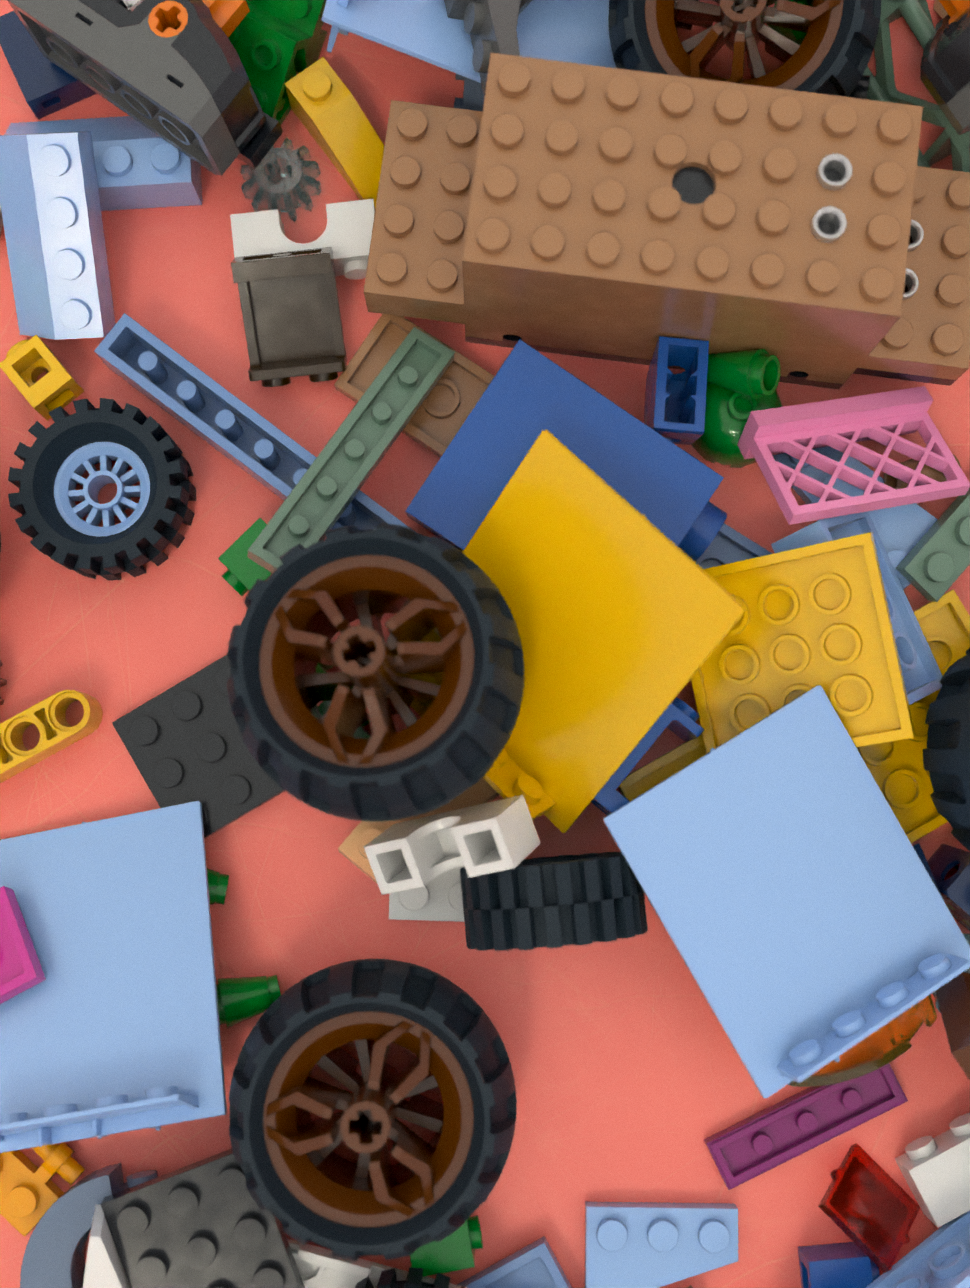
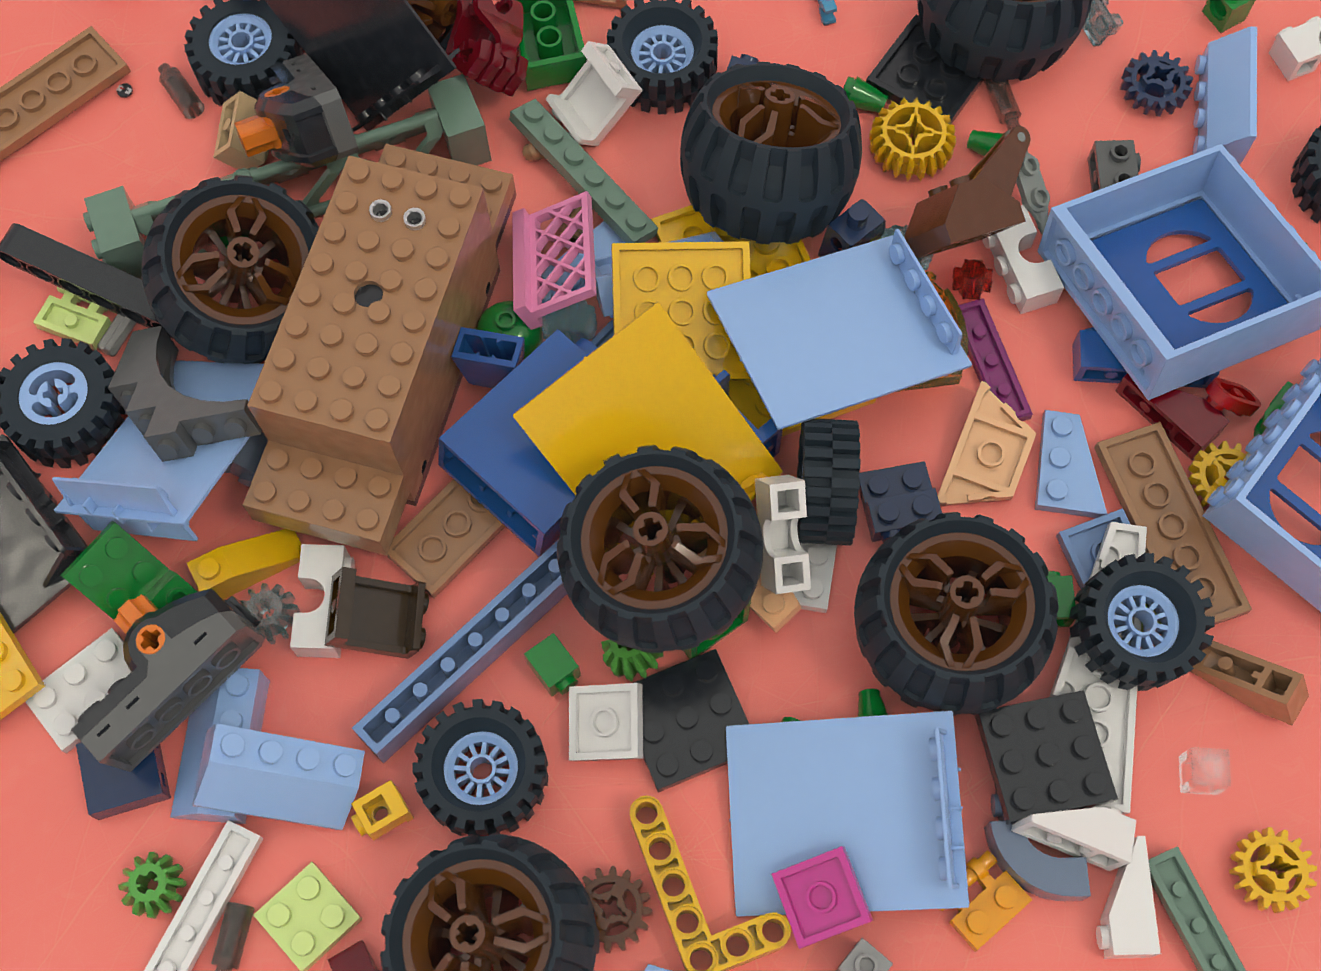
camera: 80 degrees left, 15 degrees down
(184, 640) = (606, 722): none -> white plate
(354, 449) = (494, 574): sand green plate -> none
(562, 1006) = (897, 498): none -> dark blue plate
(655, 1128) = (987, 454): none -> light nougat wing
(745, 372) = (485, 309): green cone -> none
(753, 501) = (573, 321): none -> clear light blue gear
(869, 1207) = (1049, 328): clear red piece -> none
(948, 1079) = (972, 279): none -> clear red gear

